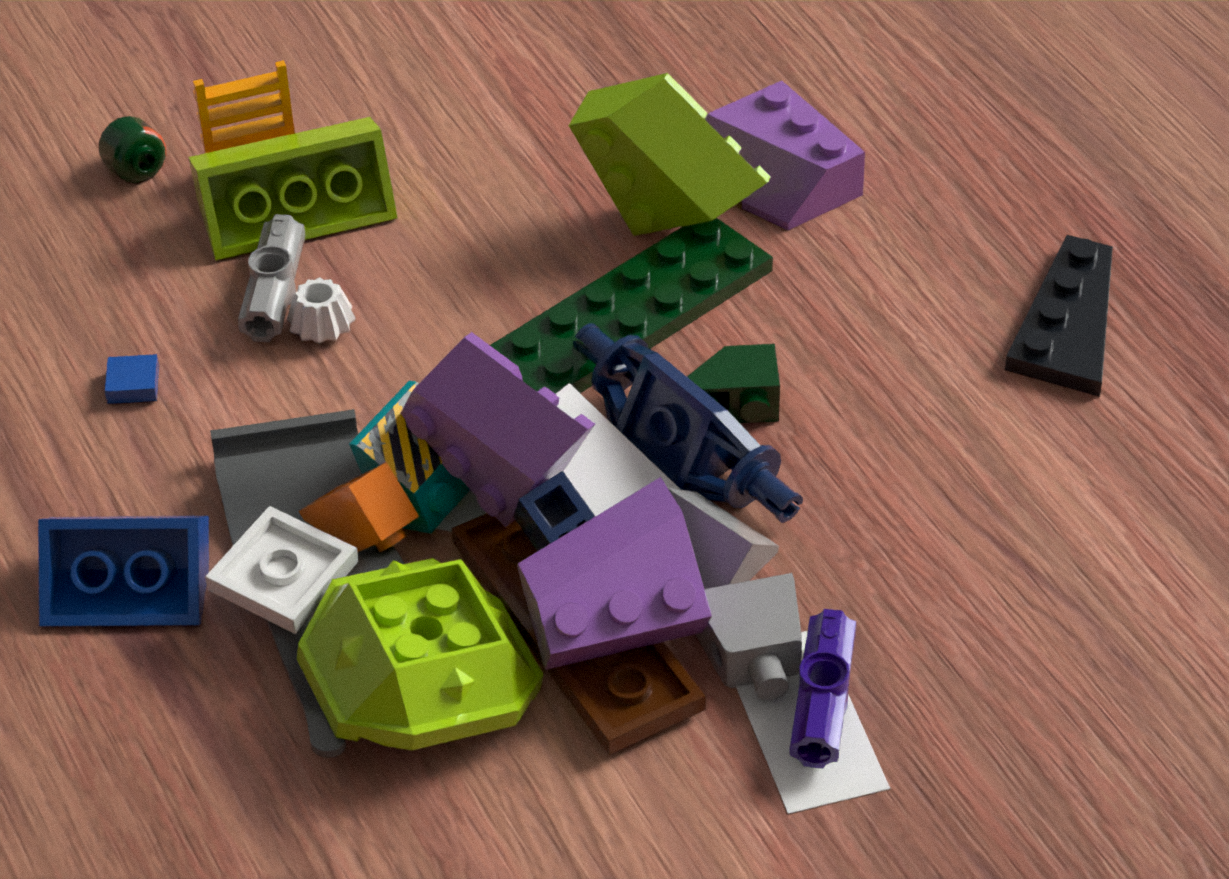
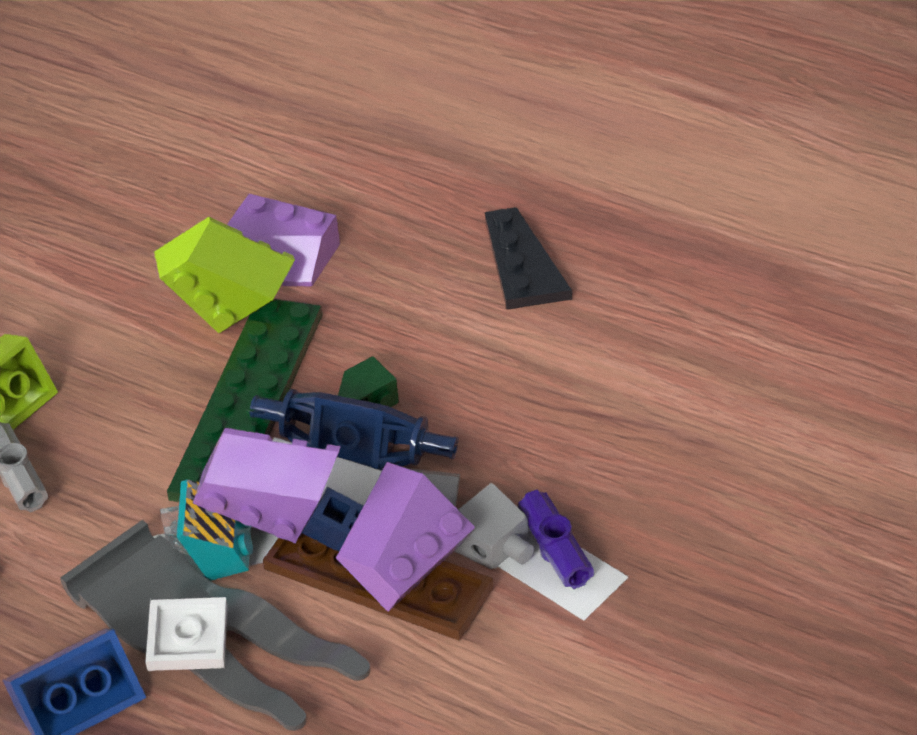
camera: 30 degrees left, 0 degrees up
(320, 311) = (64, 472): white piece -> none
(364, 510) = (205, 573): orange slope -> none
(416, 657) = (309, 642): lime piece -> none

